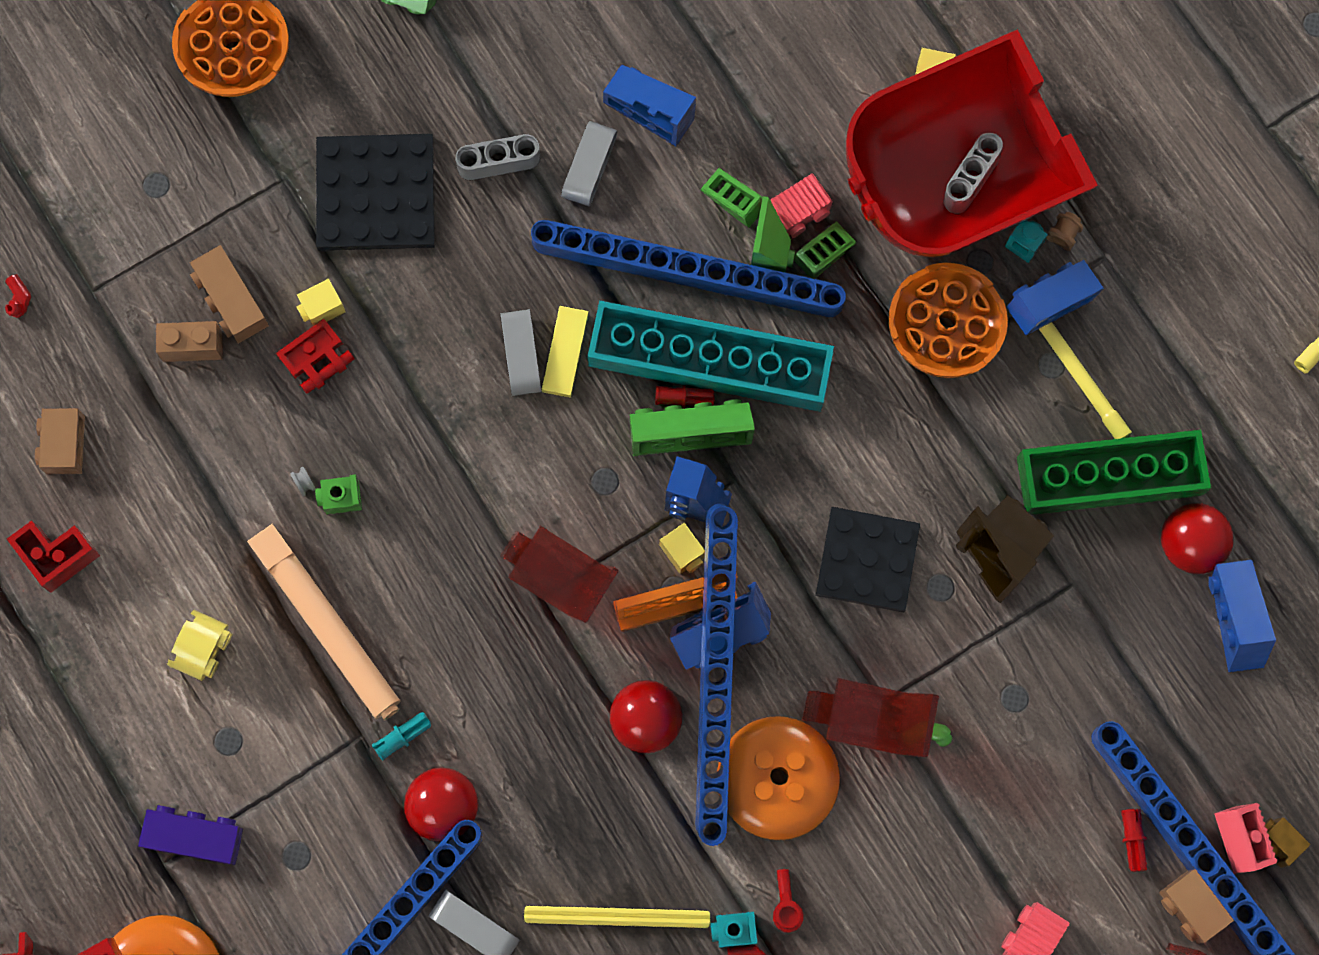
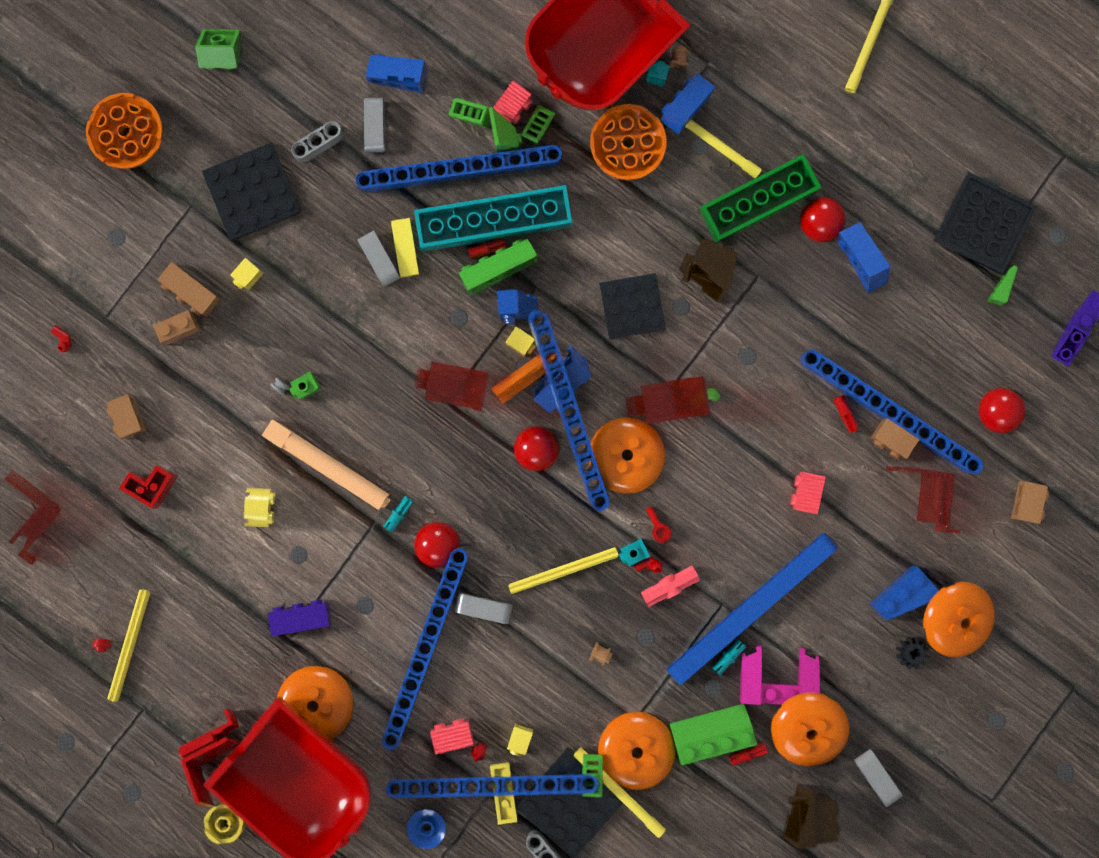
camera: 10 degrees left, 10 degrees up
(310, 349) = (251, 305): red plate -> none
(976, 161) = (614, 35): light grey beam -> none
(1245, 838) = (910, 389): coral brick -> none
(1286, 841) = (932, 382): pearl gold brick -> none

